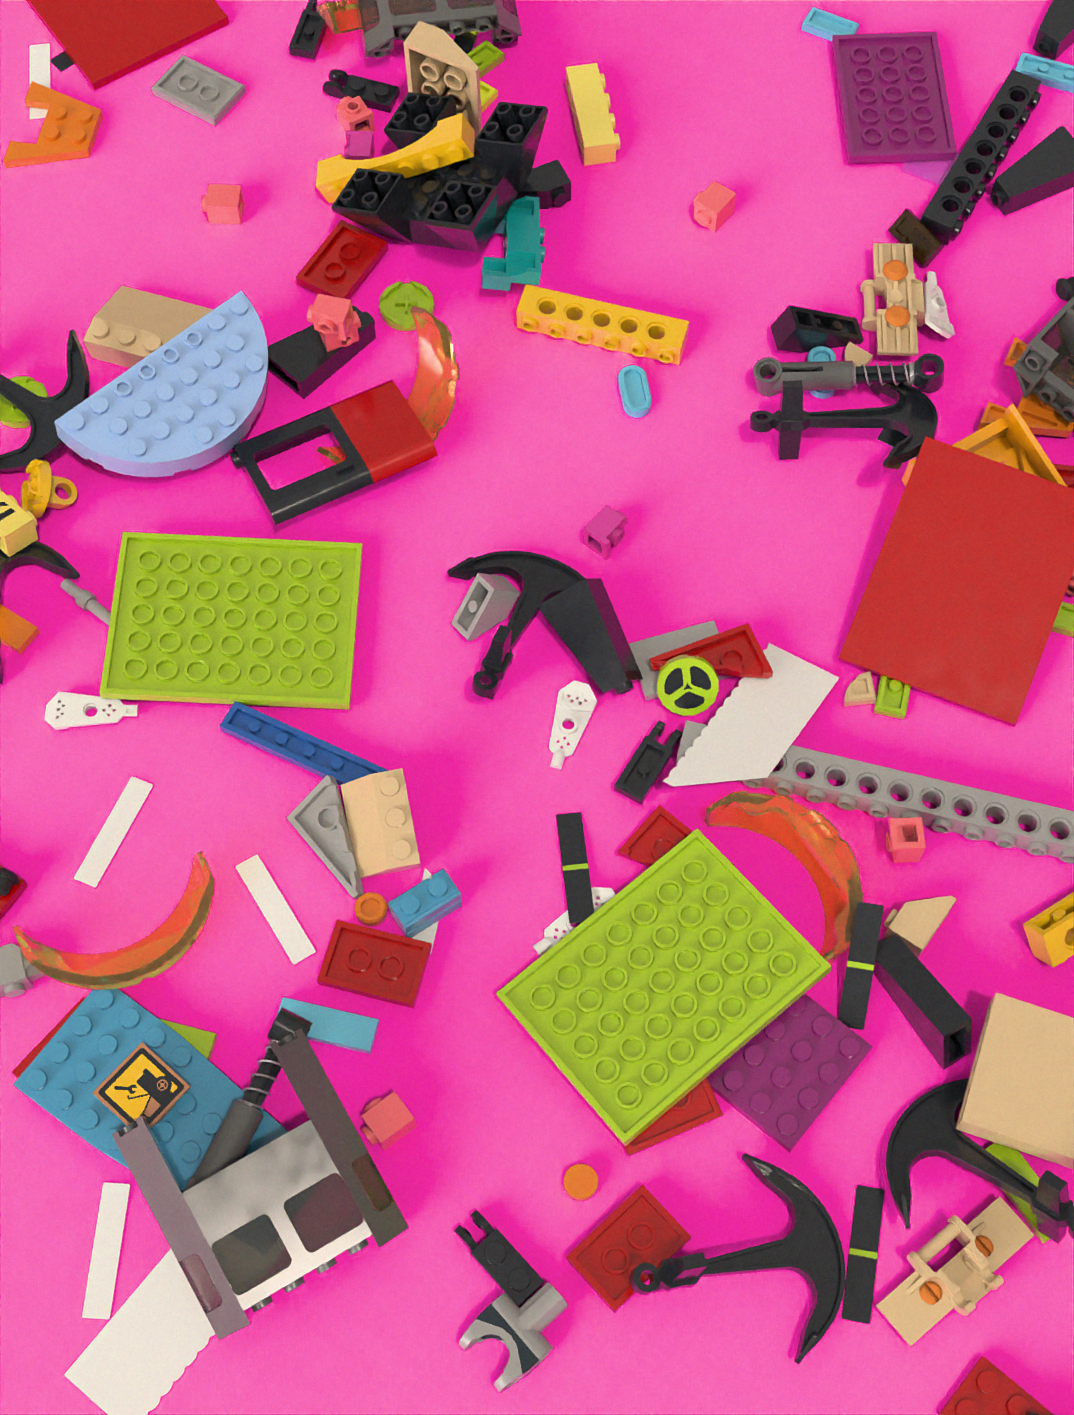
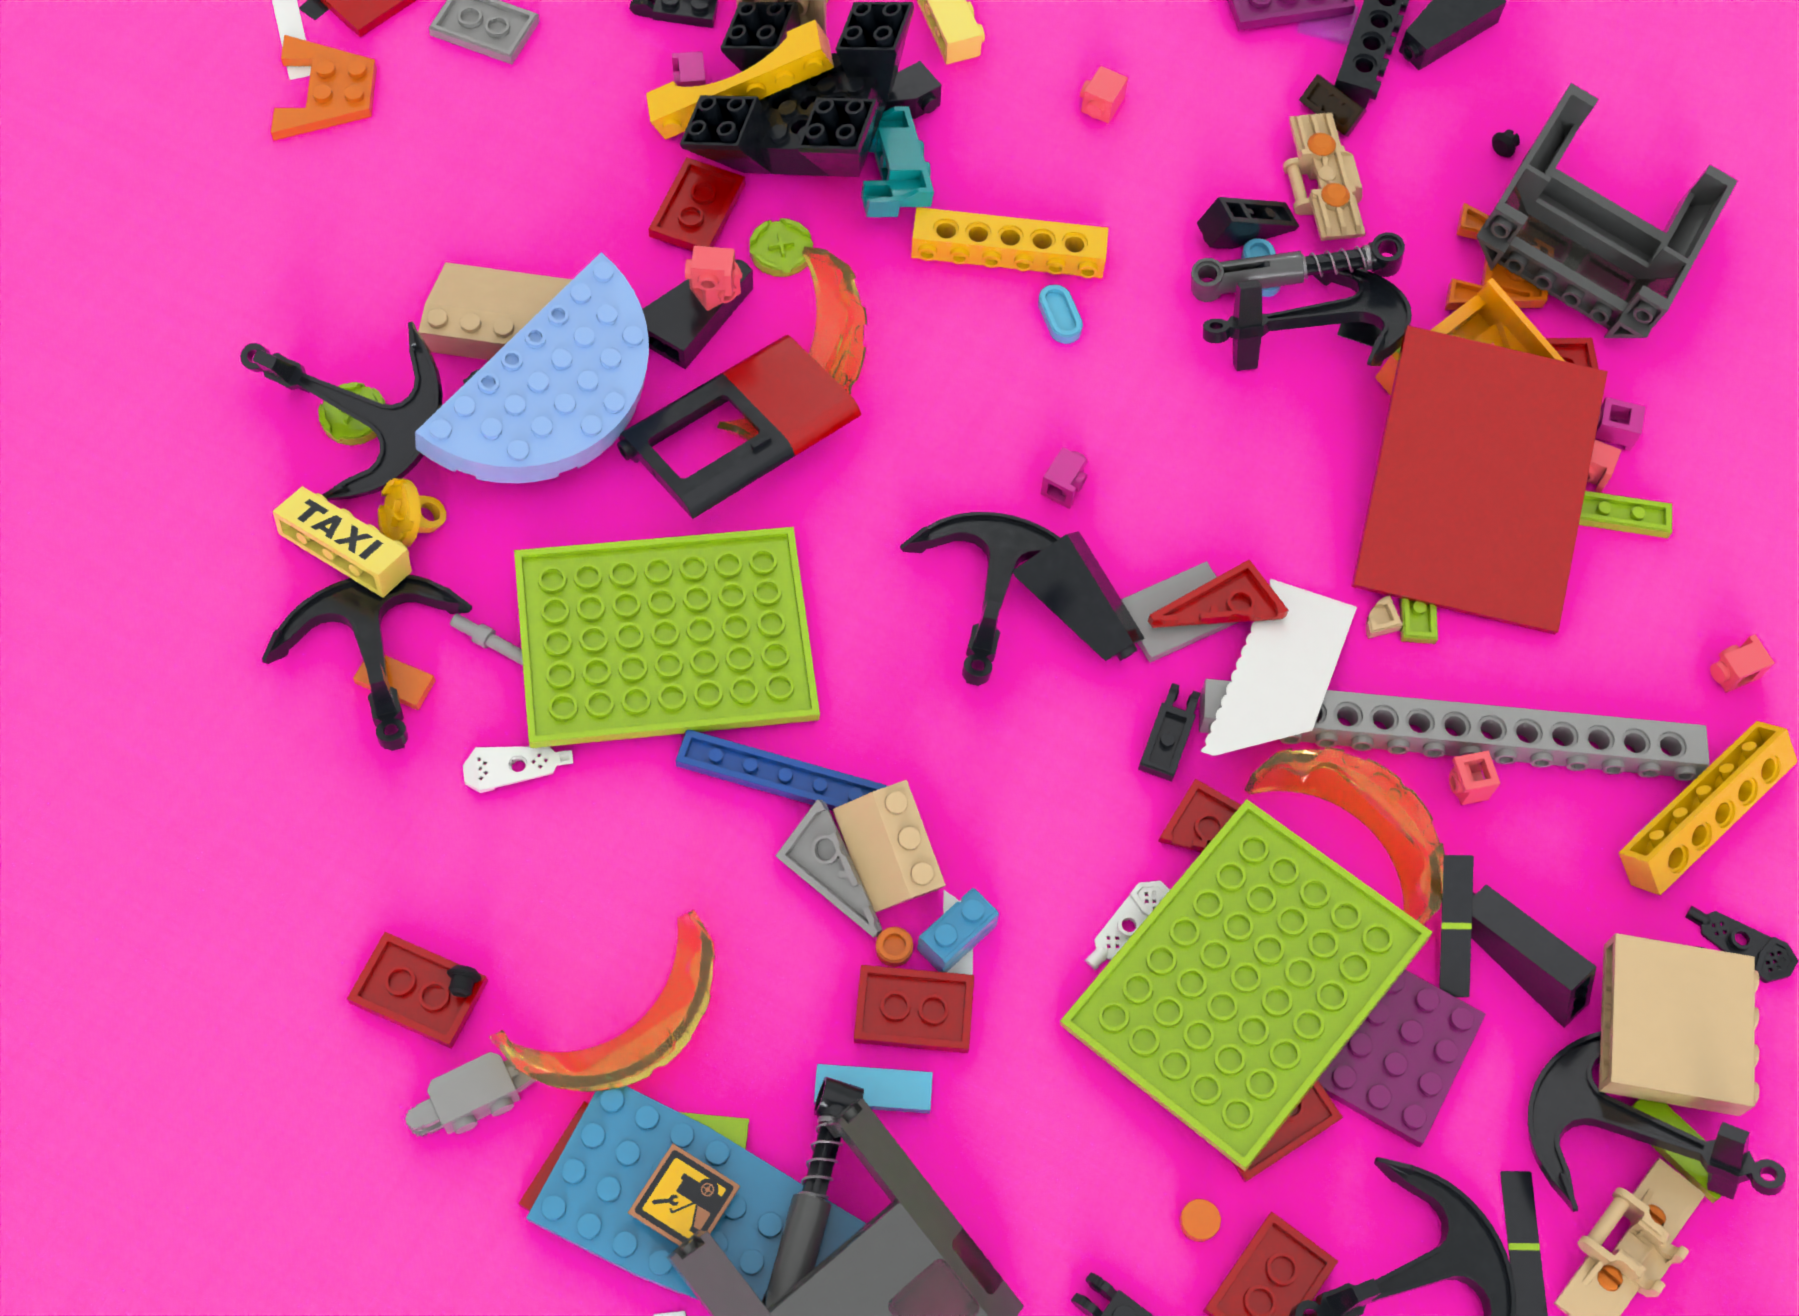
camera: 15 degrees left, 0 degrees up
(113, 832) = (574, 902): white sticker -> none
(224, 204) = (545, 154): coral brick -> none
(275, 909) = (783, 963): white sticker -> none
(353, 111) = (673, 31): coral brick -> none
(387, 1121) = (969, 1187): coral brick -> none
(484, 605) = (949, 579): light grey slope -> none
(571, 712) = (1070, 687): white piece -> none
(575, 867) = (1114, 863): black sticker -> none
(687, 685) = (1197, 638): lime tile -> none
(857, 355) = (1294, 242): tan tile -> none
(918, 921) = (1506, 866): tan slope -> none
(935, 307) = (1371, 180): white piece -> none

